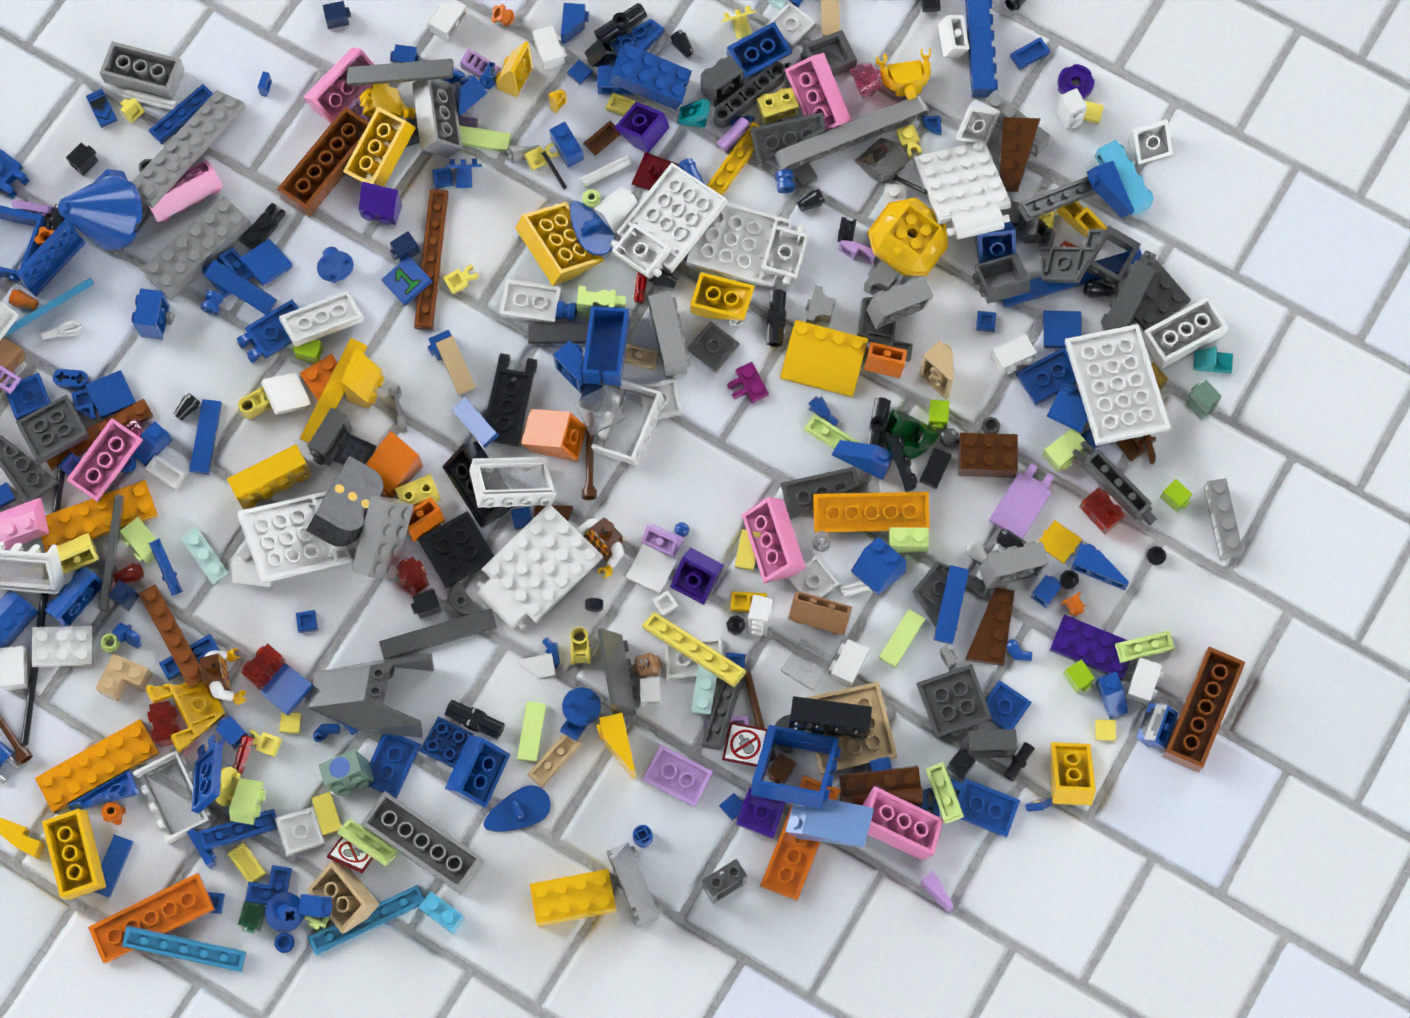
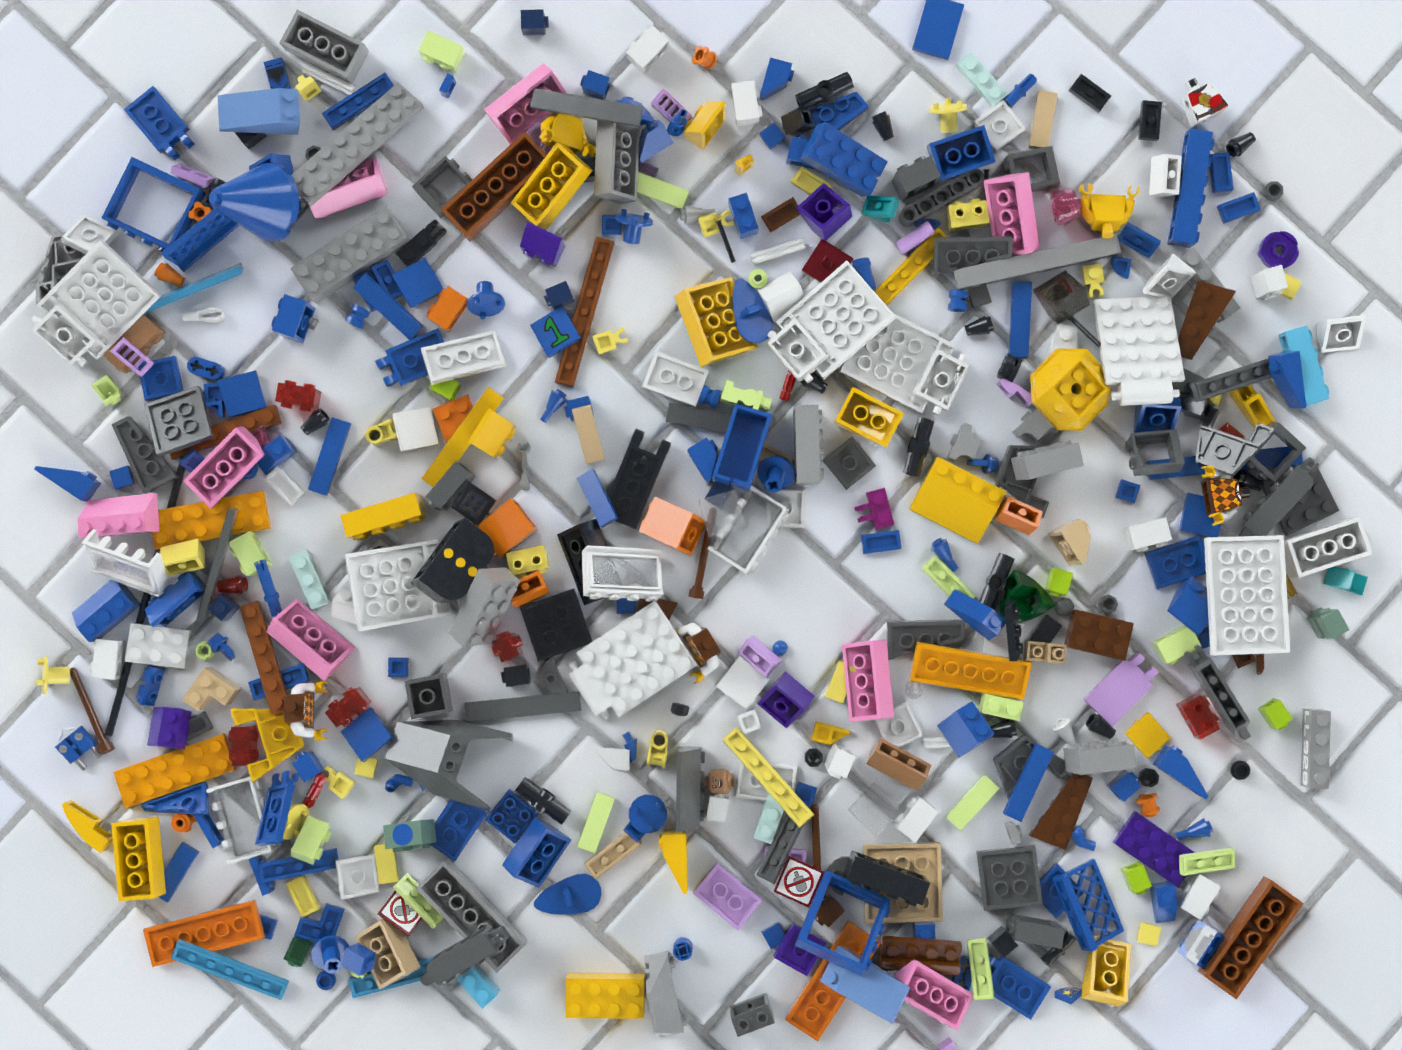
camera: 15 degrees right, 15 degrees up
(61, 678) = (148, 693): none -> blue hinge
(85, 721) = (169, 727): none -> dark purple slope
(91, 136) = (260, 111): none -> medium blue slope
(107, 721) = (198, 725): none -> dark grey tile
(139, 811) = (209, 829): none -> blue tile
(166, 385) = (304, 396): none -> clear red brick
(214, 610) = (310, 639): none -> bright pink slope
(253, 55) = (441, 51): none -> yellowish green brick
(263, 163) = (431, 175): none -> dark grey window
(299, 279) = (447, 309): none -> orange brick
(342, 638) = (428, 696): none -> dark grey brick
(418, 343) = (555, 401): none -> blue cone
(421, 876) = (464, 954): none -> dark grey hinge
(644, 366) = (776, 473): none -> blue piece
(759, 412) = (881, 542): none -> blue tile
(846, 321) = (987, 464): none -> blue piece
(848, 186) = (1020, 319): none -> blue tile
(917, 562) = (1004, 729): none -> black cone
(939, 481) = (1044, 652): none -> tan slope
(943, 97) = (1138, 240): none -> blue plate
(1006, 26) = (1221, 172): none -> blue tile
(1028, 718) = (1076, 911): none -> blue fence
(1057, 32) = (1273, 191): none -> dark grey tile
(1073, 302) = (1221, 495): none -> torso
(1129, 619) = (1199, 829): none -> blue cone

